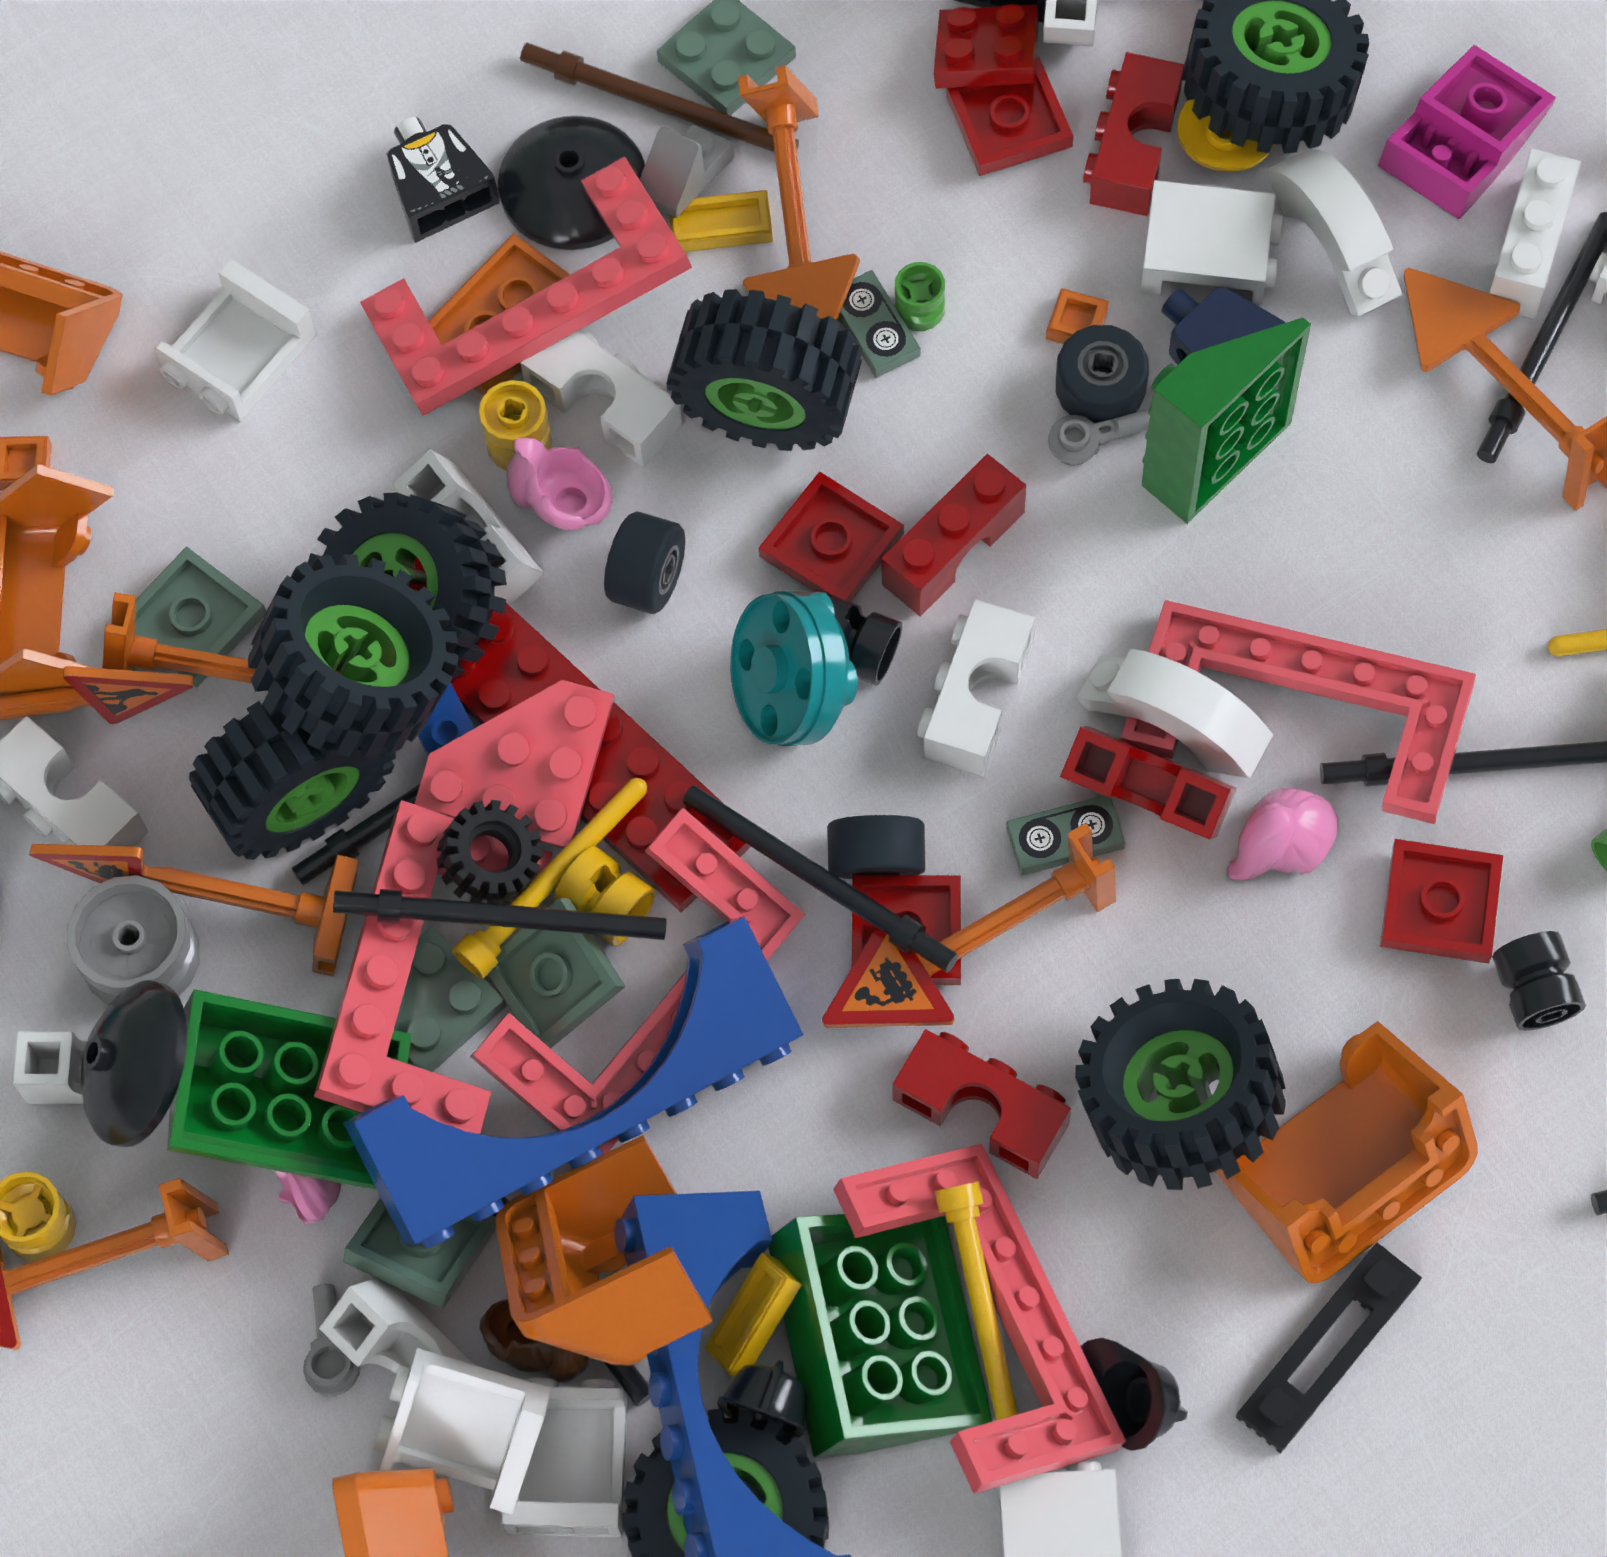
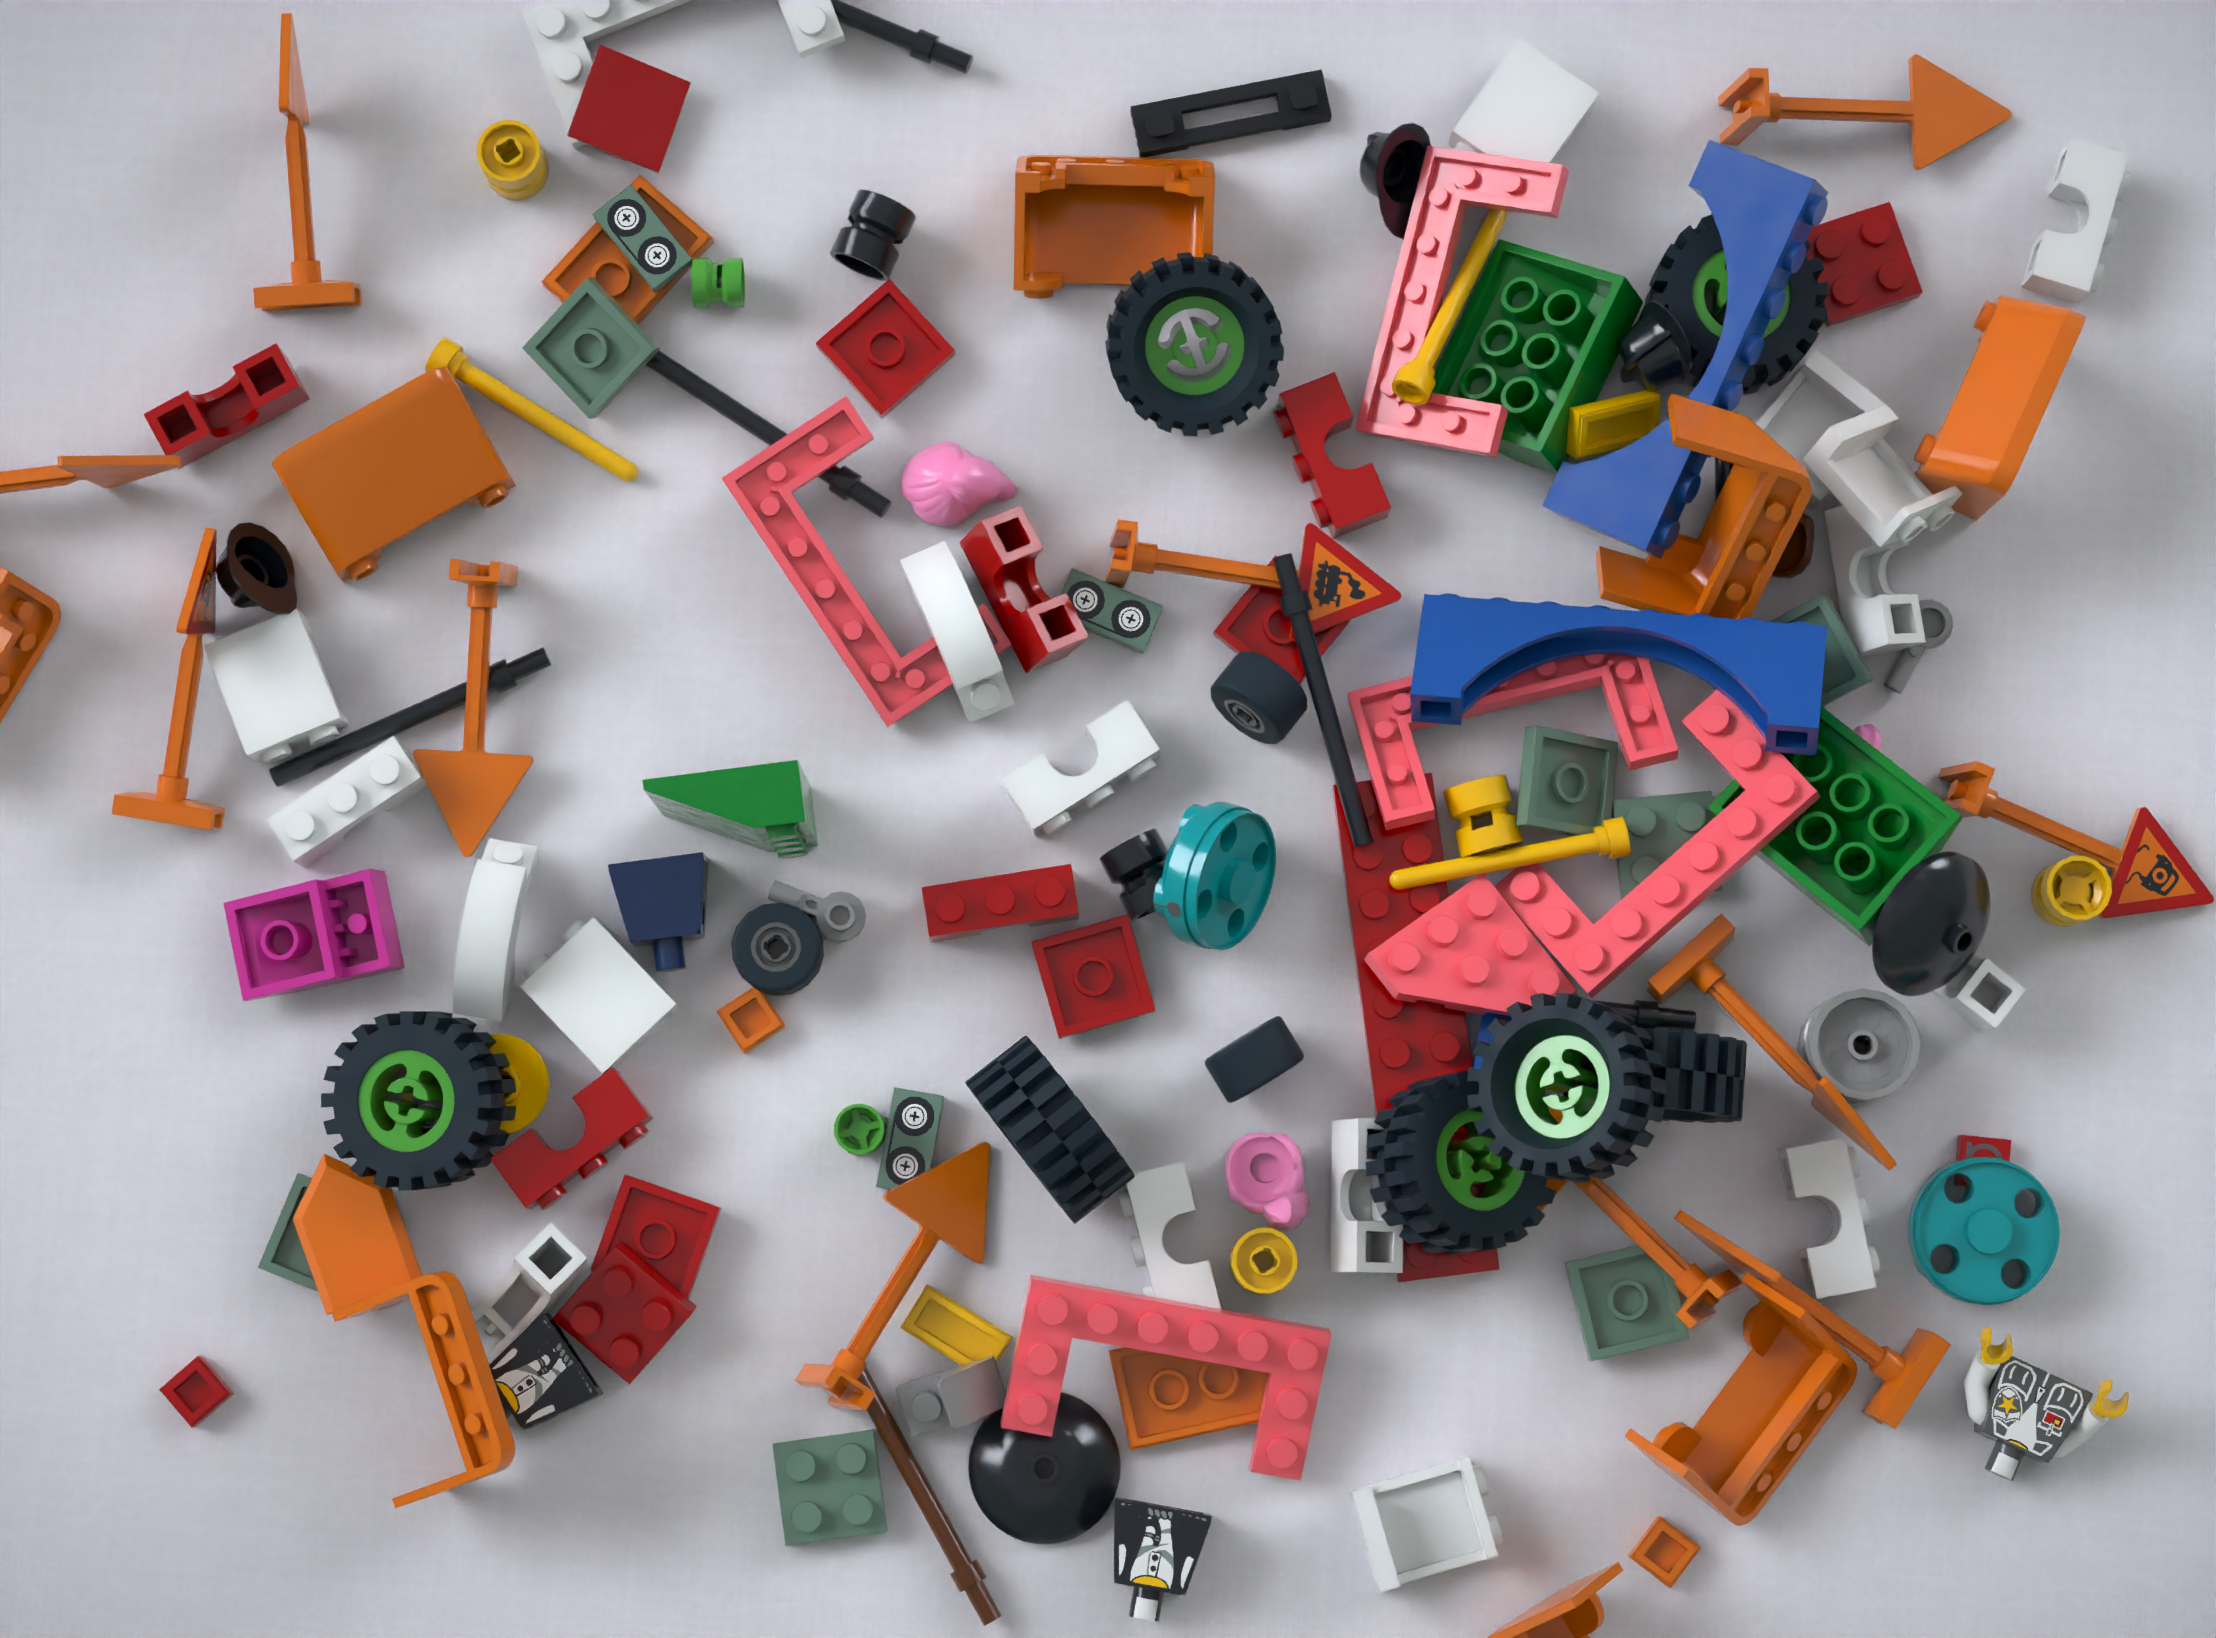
camera: 150 degrees left, 15 degrees up
(391, 906) = (1663, 894): black bar -> none
(507, 829) = (1544, 870): black tyre -> none

